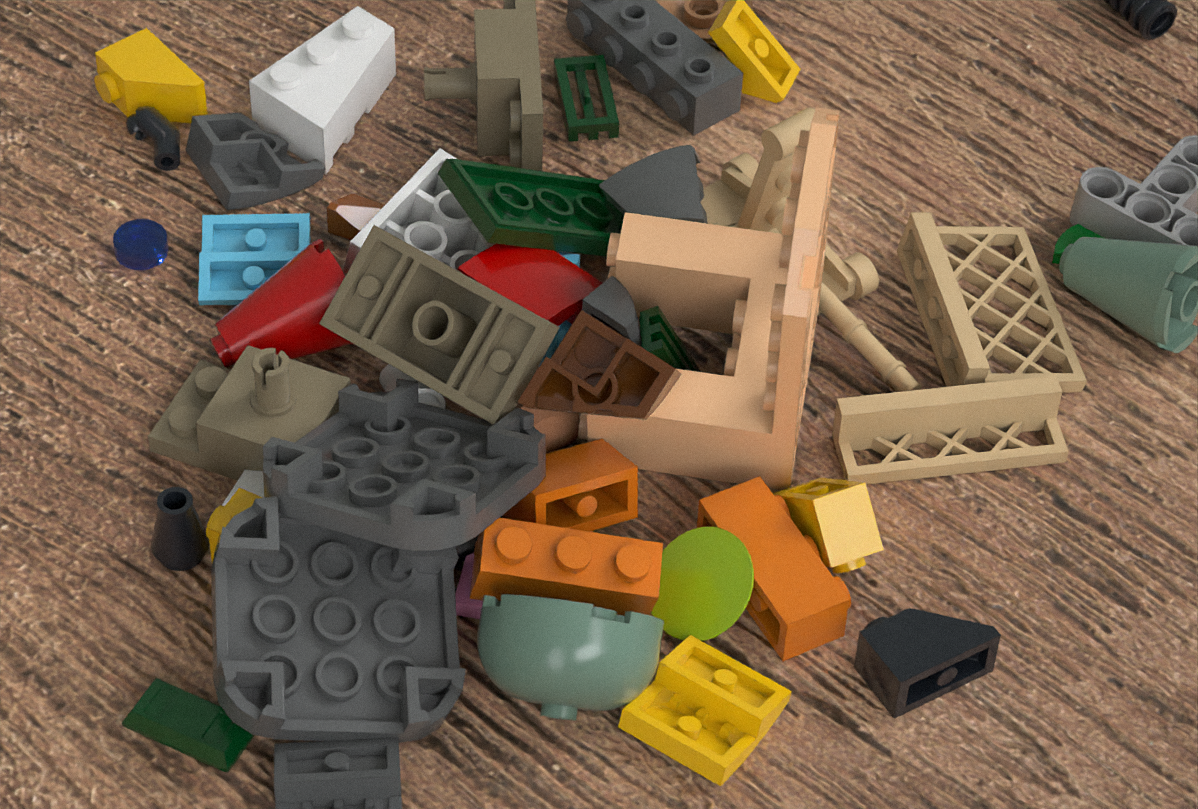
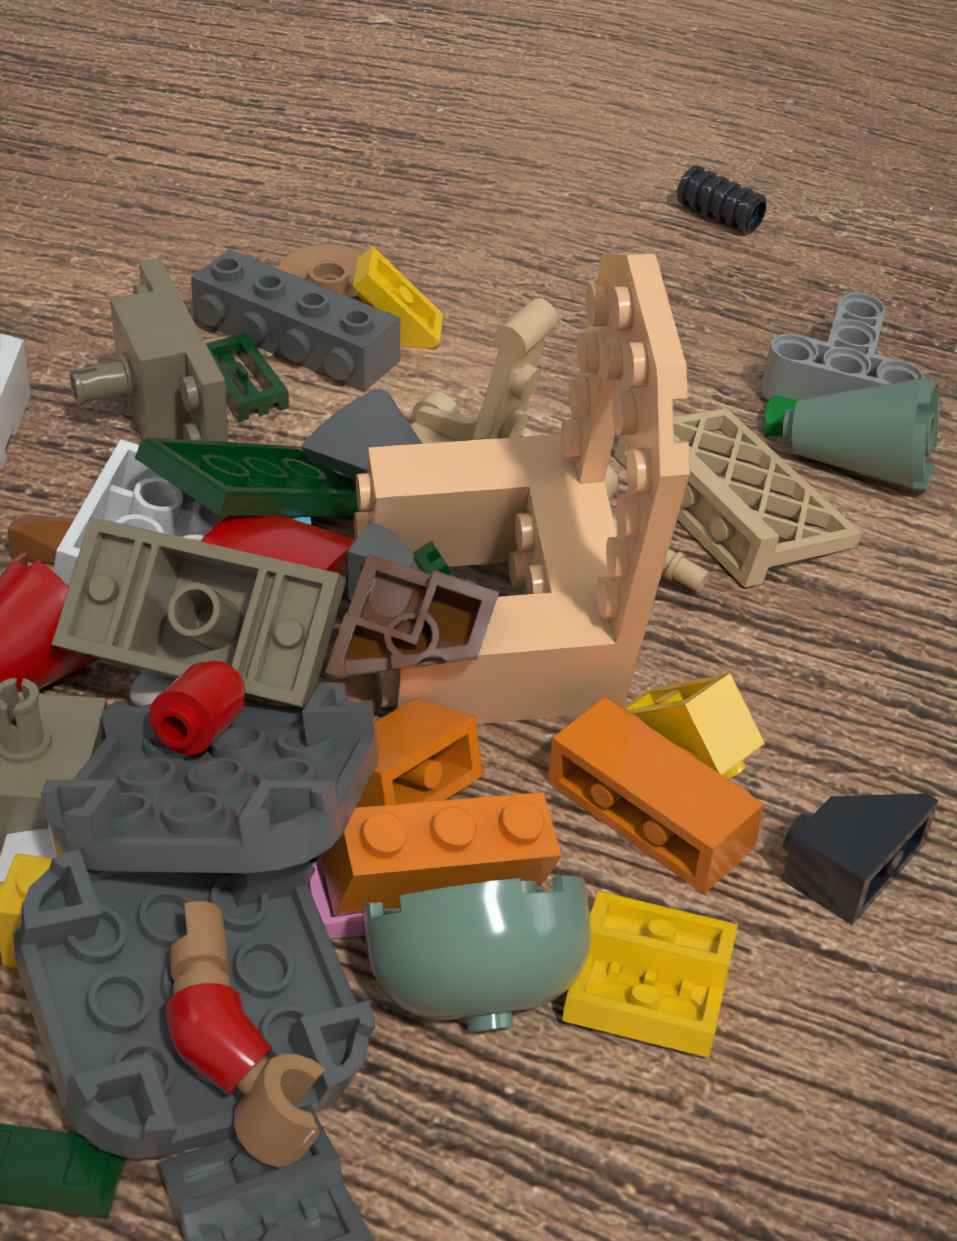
camera: 20 degrees left, 5 degrees down
(338, 670) = (230, 1051): none -> medium nougat piece
(411, 405) = (197, 707): none -> red brick
(703, 583) = (601, 825): lime piece -> none
(944, 420) = (748, 598): tan fence -> none

